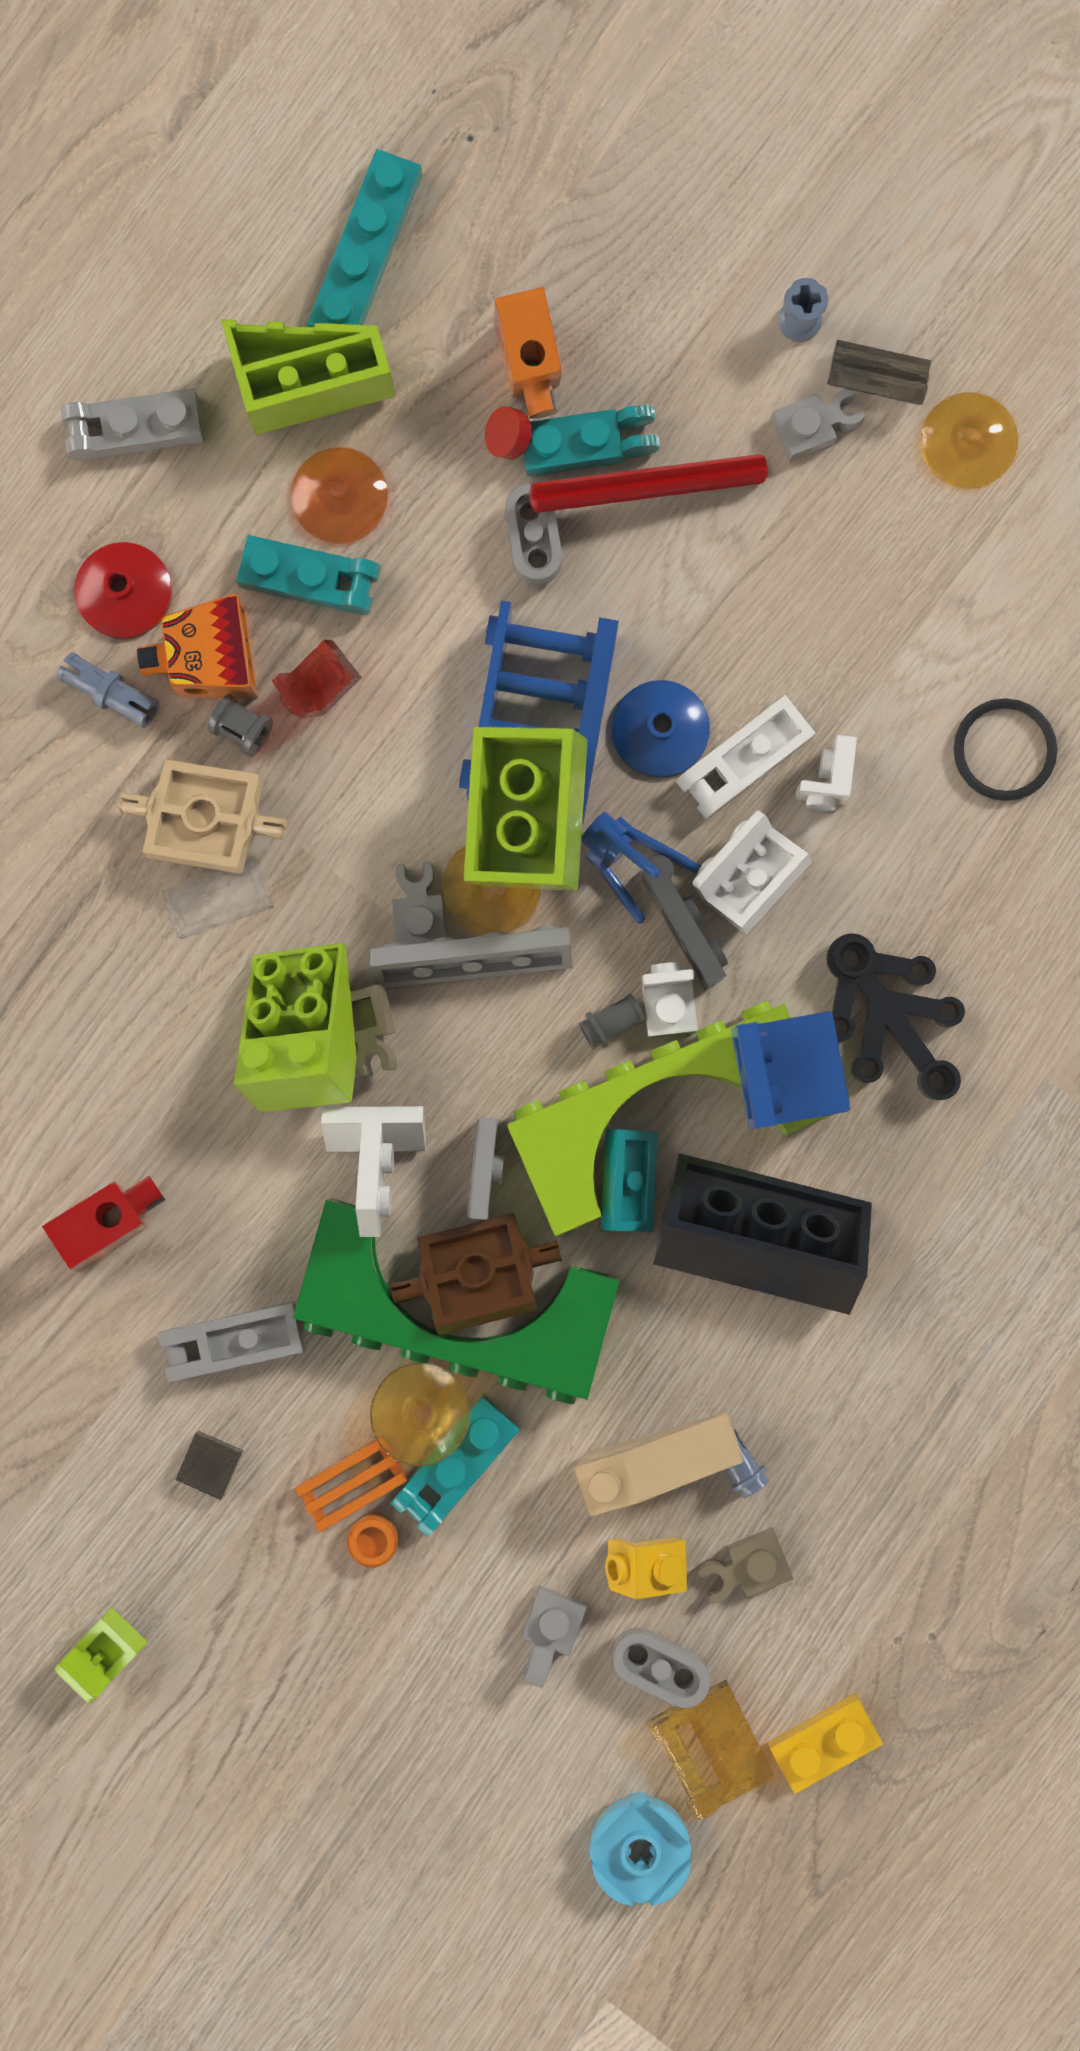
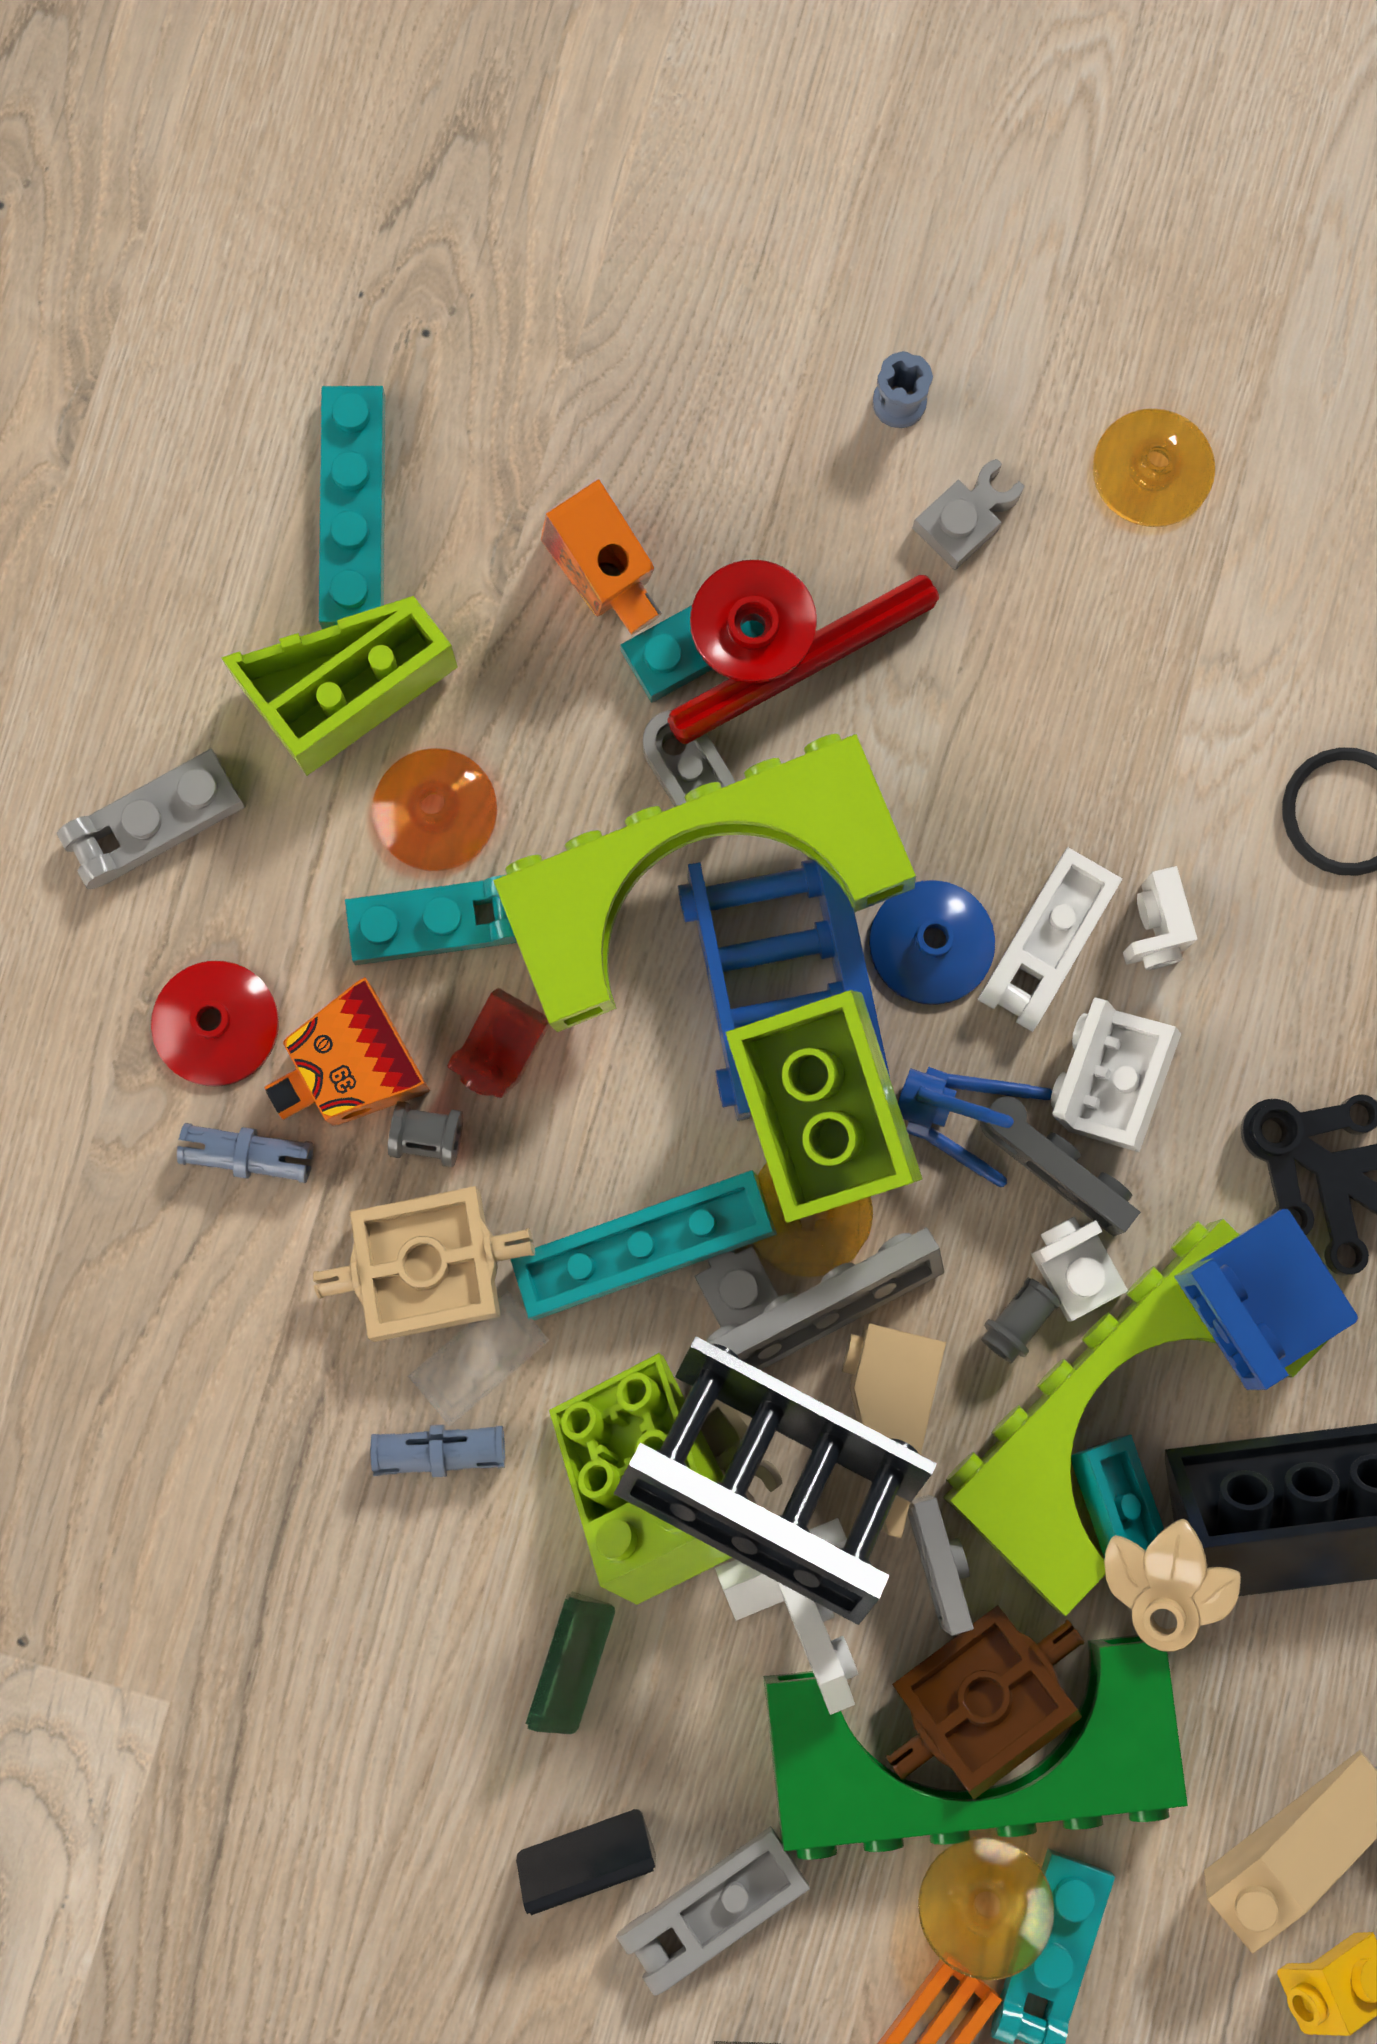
camera: 30 degrees left, 5 degrees down
(81, 1230) = (478, 1850): red torso -> none
(155, 1273) = (585, 1861): none -> black slope
(163, 952) = (437, 1450): none -> sand blue pin
(197, 1135) = (570, 1665): none -> clear green slope
(362, 862) = (643, 1245): none -> teal plate
(365, 1100) = (754, 1536): none -> black fence
(406, 593) = (815, 803): none -> lime arch
(495, 1042) = (893, 1391): none -> tan slope
(507, 433) = (611, 661): red tile -> none
(621, 417) = (757, 593): none -> red dish
(640, 1238) = (1170, 1577): none -> tan plate
(879, 372) = (1019, 428): clear smoke tile -> none

